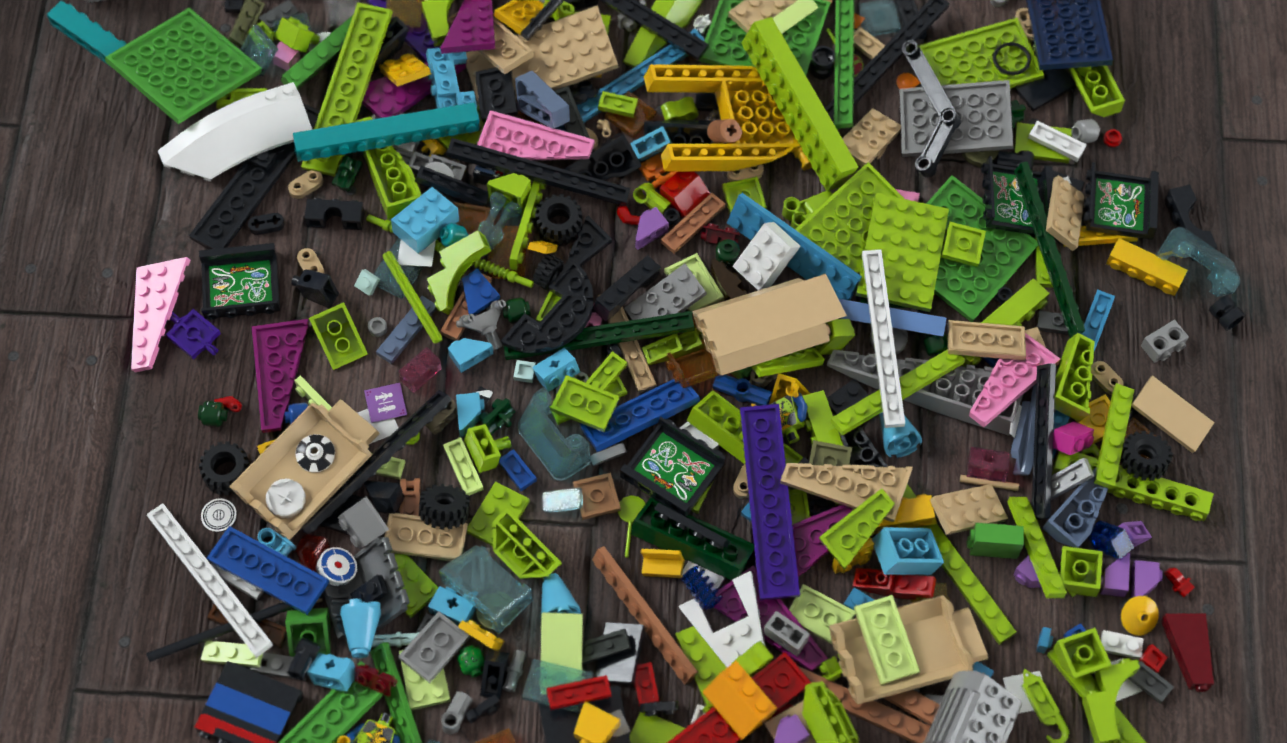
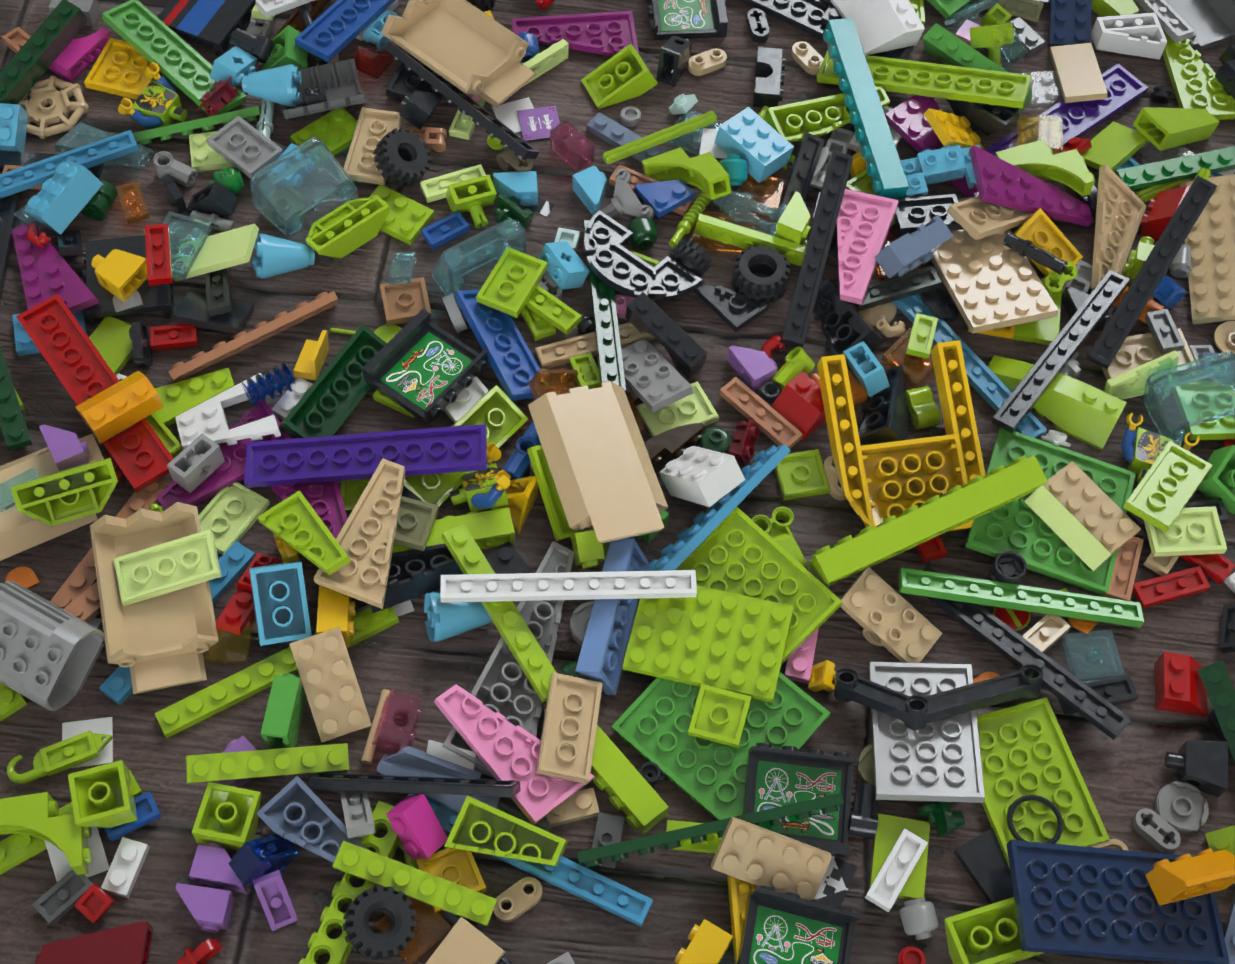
camera: 90 degrees right, 5 degrees down
(285, 498) = (428, 32): white tile -> none
(315, 462) = (476, 53): dish -> none
(337, 566) = (348, 73): tile -> none
(347, 173) = (817, 85): dark green hips -> none
(362, 523) = (390, 88): light grey slope -> none
(483, 636) = (241, 187): yellow plate -> none
(543, 247) = (716, 248): yellow tile -> none
(699, 531) = (343, 379): black plate -> none
(724, 131) = (874, 427): nougat piece -> none
(754, 658) = (169, 426): lime axle -> none
(917, 184) = (822, 677): none -> yellow tile
(1045, 640) = (145, 766): dark azure plate -> none
(1132, 614) = (156, 892): yellow dish -> none

